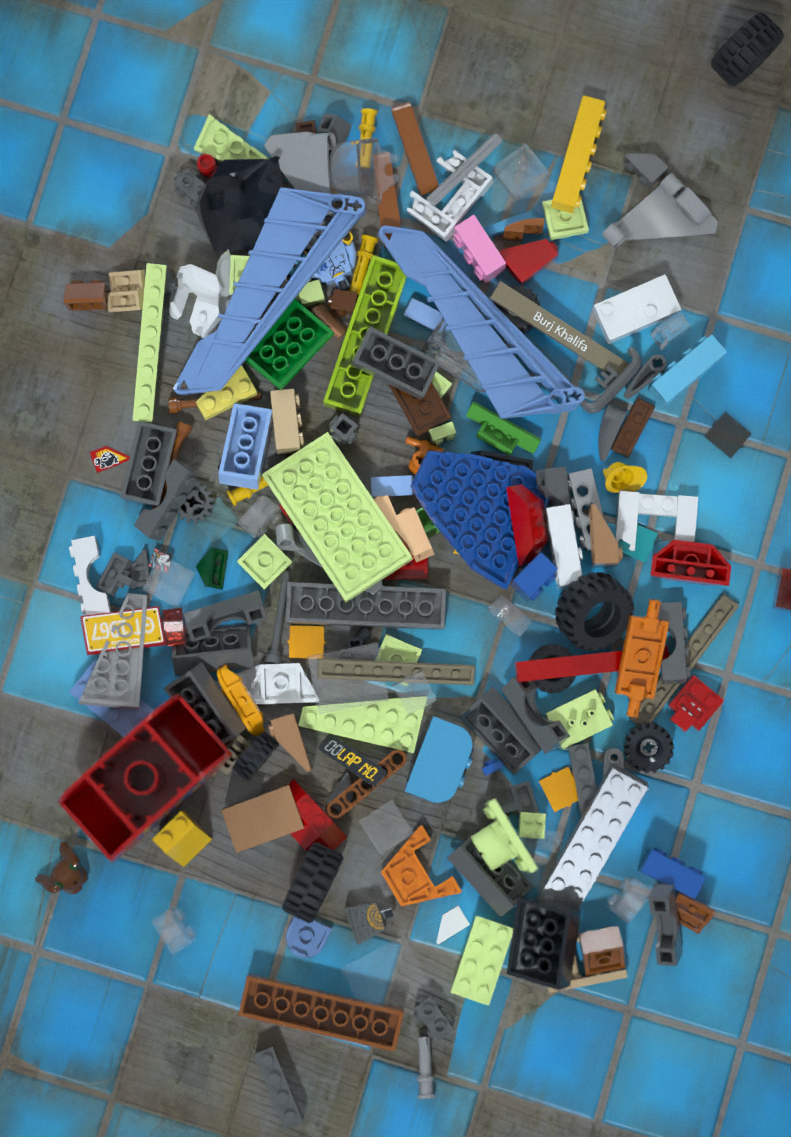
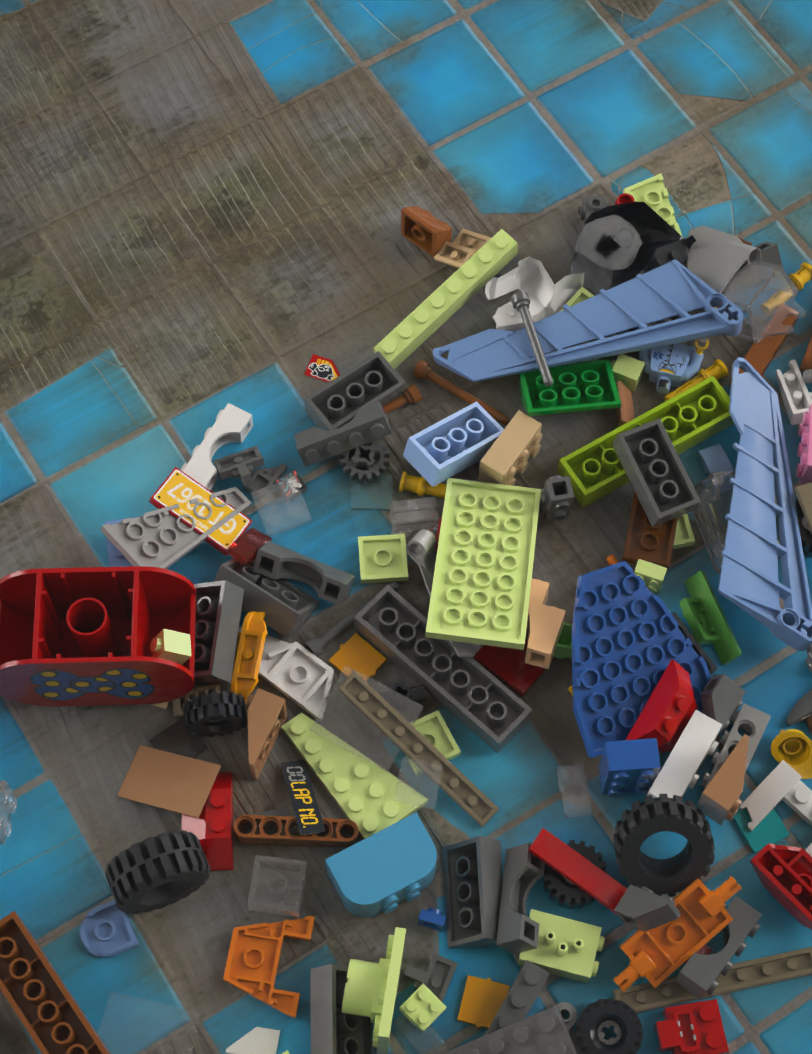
camera: 40 degrees right, 20 degrees down
(182, 838) = (78, 732): yellow slope -> none
(199, 744) = (171, 646): none -> yellowish green brick
(205, 307) = (521, 303): none -> dark grey piece
(213, 567) = (332, 528): dark green slope -> none
(235, 391) = (490, 393): light yellow wing -> none
(342, 302) = (649, 397): reddish brown brick -> none
(367, 920) = (178, 964): torso -> none
(391, 485) = (560, 585): light blue slope -> none
(614, 662) = (646, 910): none -> dark grey slope

